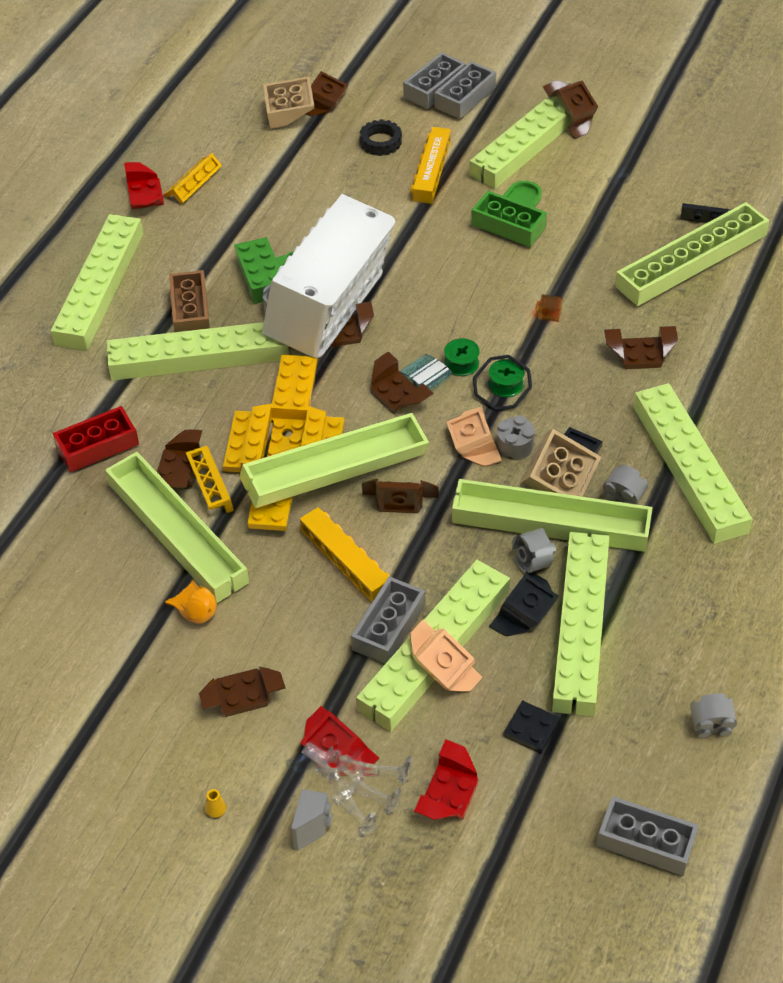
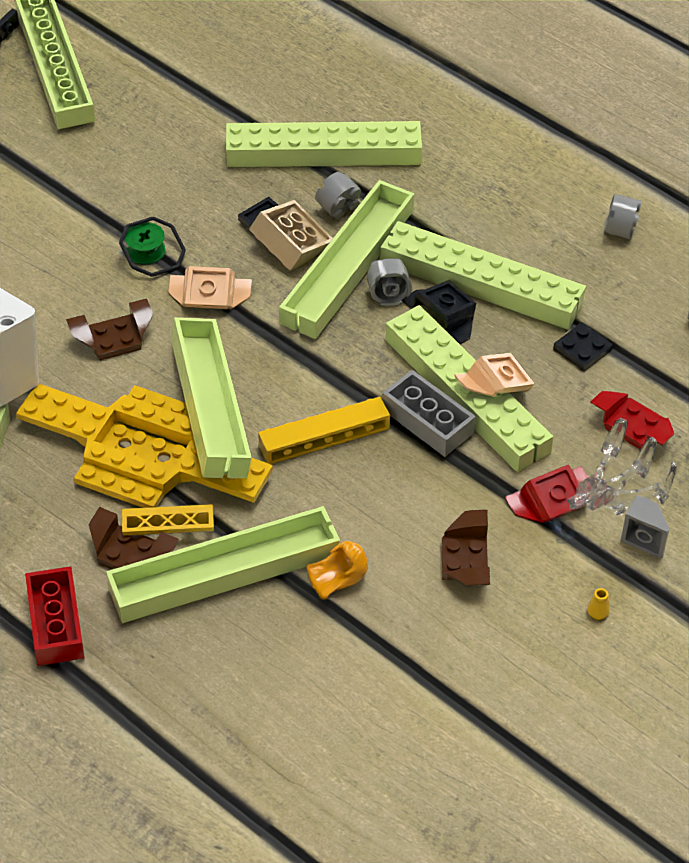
camera: 75 degrees left, 0 degrees up
(400, 496) = (265, 377): reddish brown piece -> none
(426, 371) = (101, 303): clear light blue slope -> none
(462, 356) = (96, 269): green piece -> none
(515, 437) = (234, 253): light grey brick -> none
(549, 307) = (63, 182): clear orange brick -> none
(642, 352) = (162, 131): reddish brown piece -> none

